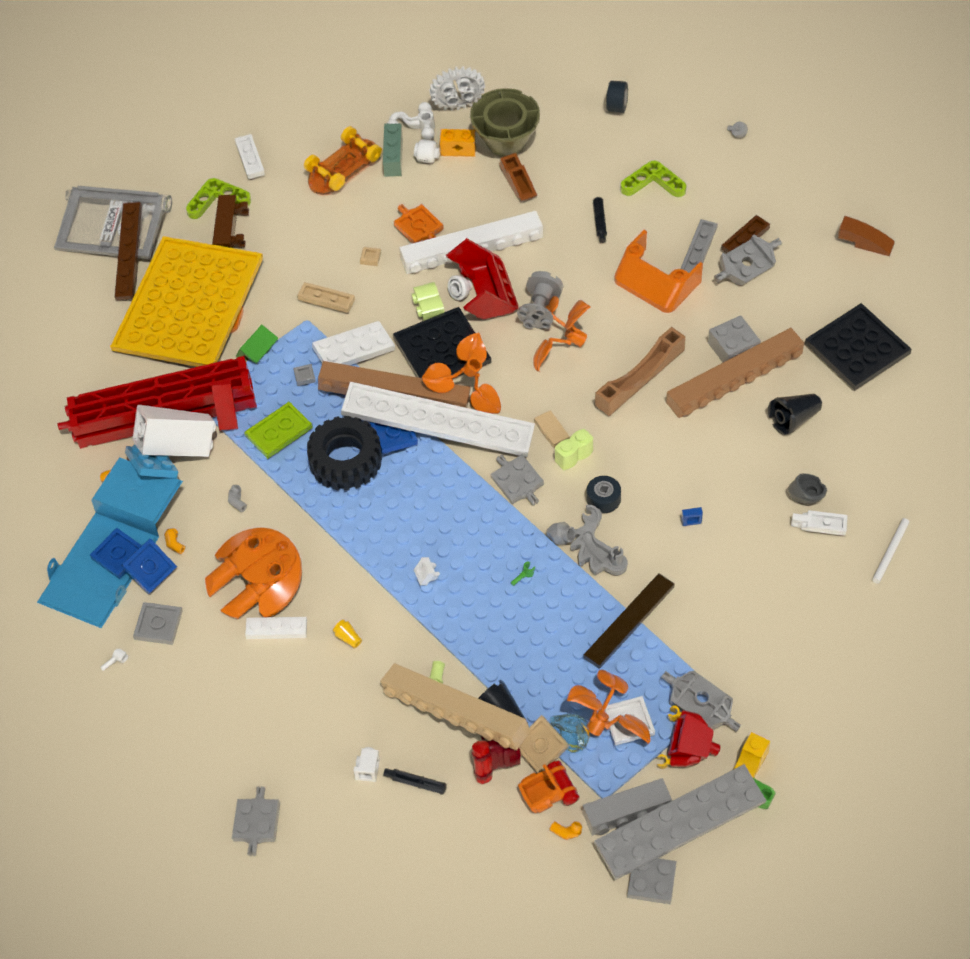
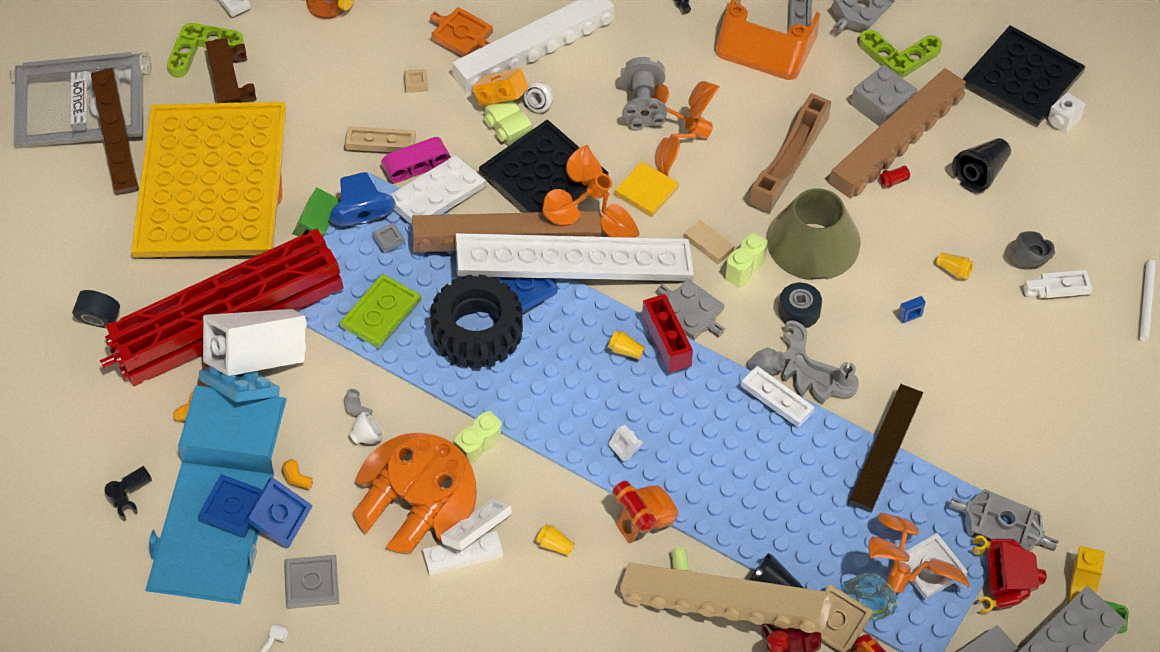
camera: 20 degrees left, 0 degrees up
(39, 524) = (116, 491): none -> black bar
(69, 383) = (95, 308): none -> black wheel
(224, 405) = (310, 292): red tile -> none
(236, 518) = (366, 430): none -> white brick
(289, 342) = (360, 201): none -> blue piece
(291, 609) = (476, 525): none -> white plate
(318, 542) = (479, 437): none -> yellowish green brick
(346, 318) = (415, 159): none -> dark pink beam
(420, 624) = (644, 507): none -> orange piece
(428, 273) = (500, 87): none -> light orange brick
(453, 496) = (625, 345): none -> yellow cone
(487, 493) = (667, 333): none -> red brick
(489, 277) = (569, 80): red windscreen -> none
(518, 377) = (646, 188): none -> yellow tile
(525, 573) = (743, 417): bright green hand -> none
(557, 562) = (777, 396): none -> white plate
(636, 454) = (810, 250): none -> olive cone
(719, 407) = (894, 176): none -> red pin
(742, 489) = (957, 265): none -> yellow cone
(763, 313) = (901, 59): none -> lime beam
(880, 384) = (1066, 112): none -> white brick

